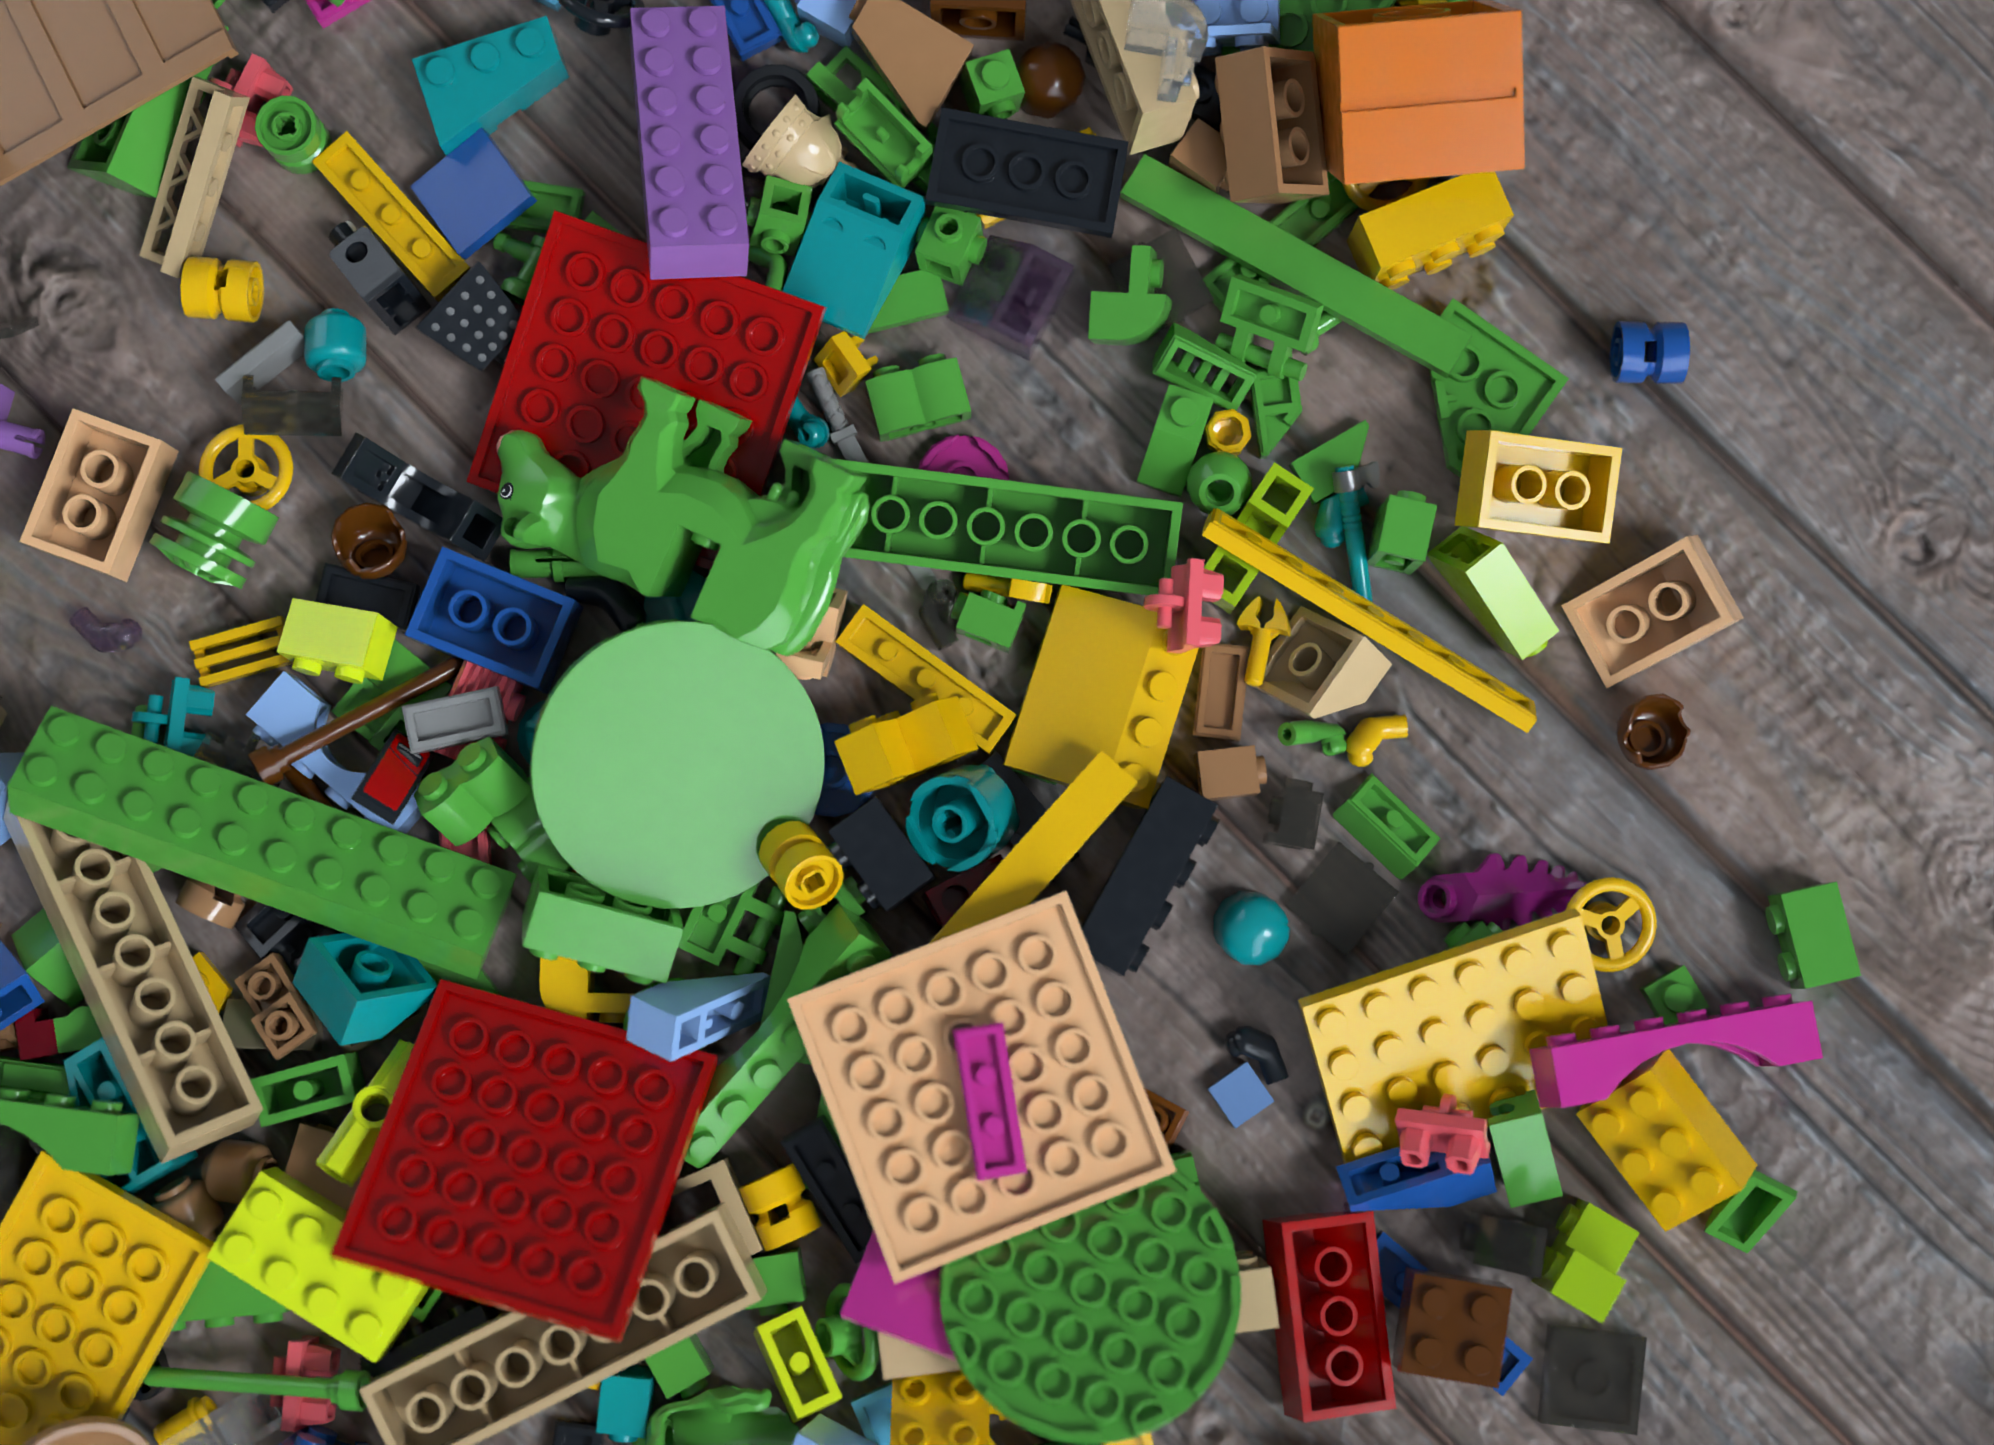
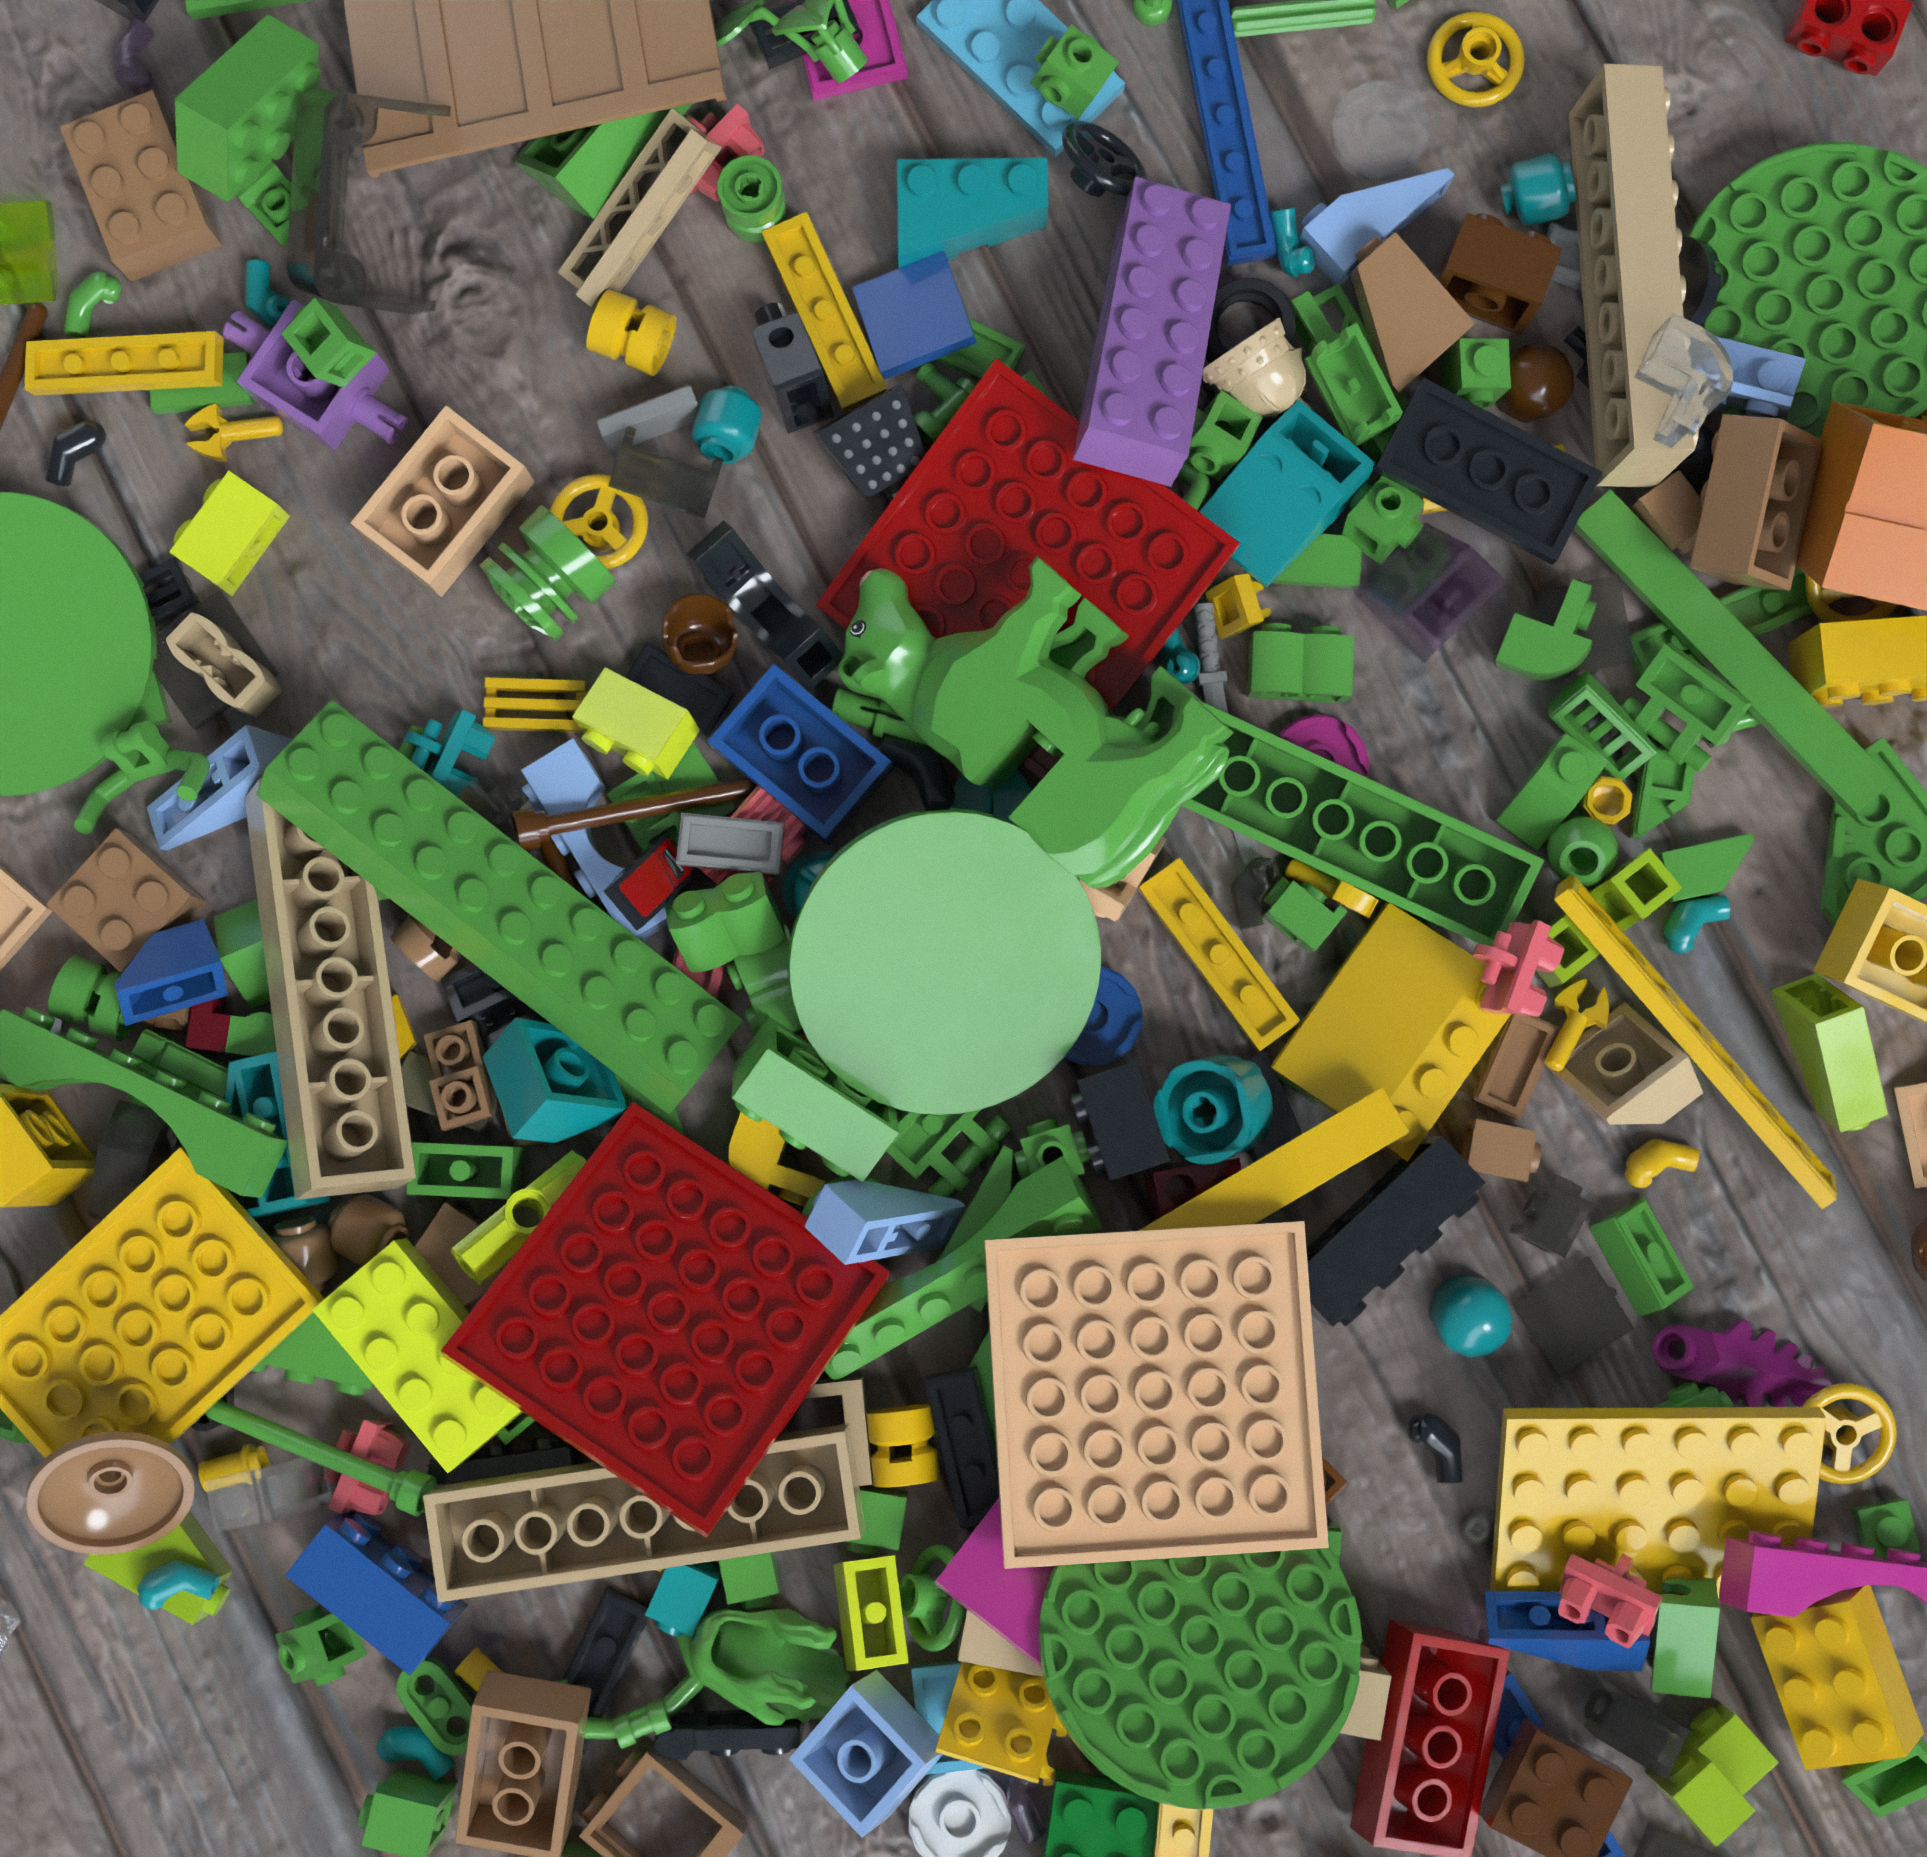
camera: 20 degrees right, 0 degrees up
(108, 636) = (405, 646): clear purple arm -> none
(801, 865) = (1036, 1105): yellow wheel -> none
(902, 747) = (1170, 1017): yellow brick -> none
(990, 1101) = (1160, 1413): dark pink tile -> none
(1240, 1094) = (1406, 1483): medium blue tile -> none
(1311, 731) = (1594, 1134): bright green arm -> none
(1346, 483) = (1714, 892): teal piece -> none
(1401, 532) = (1756, 962): bright green brick -> none

